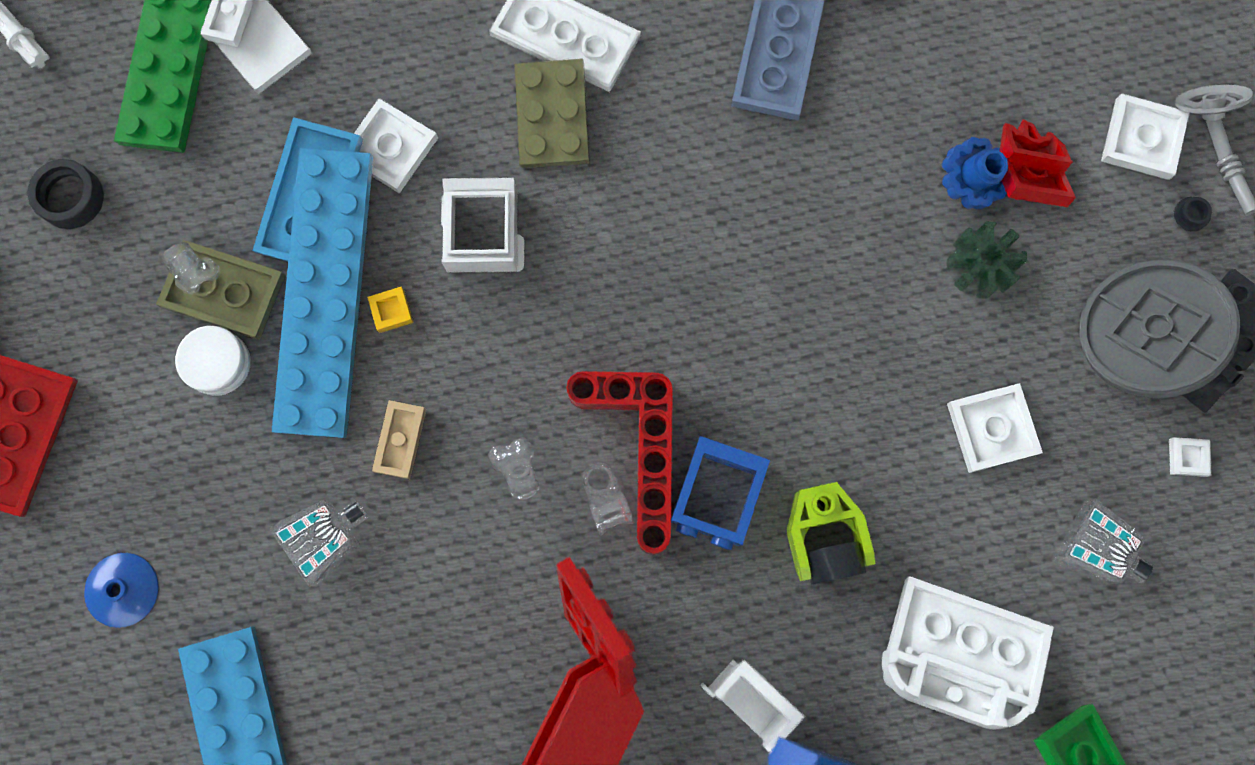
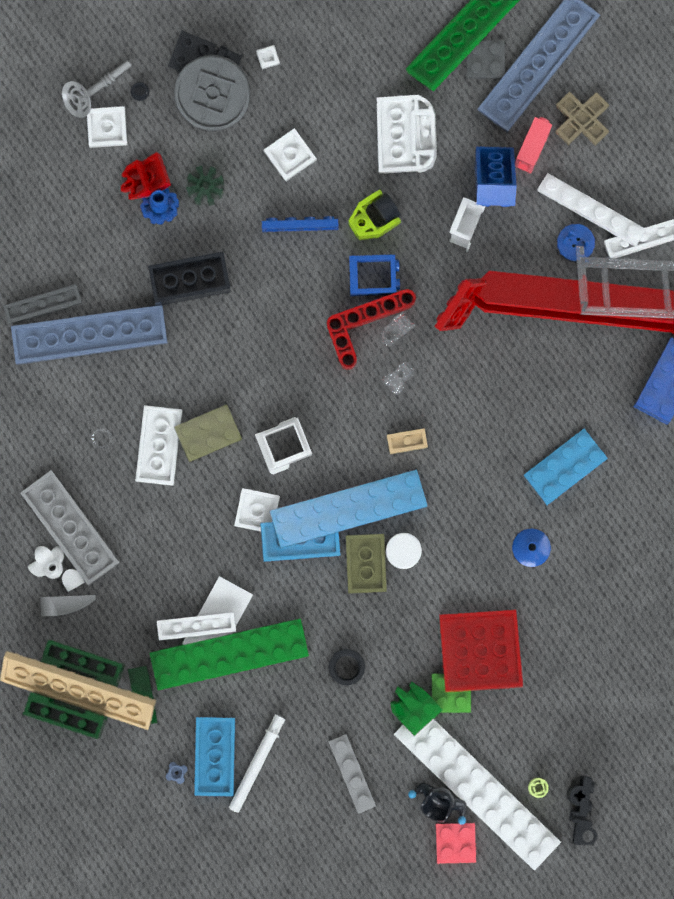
camera: 110 degrees left, 5 degrees up
(189, 268) = (364, 575): clear plate -> none
(319, 538) = (469, 458): torso -> none
(390, 309) = (343, 473): yellow plate -> none
(829, 172) = (189, 278): none -> black brick
(855, 412) = (307, 224): none -> blue plate
(1102, 547) = (329, 86): torso -> none

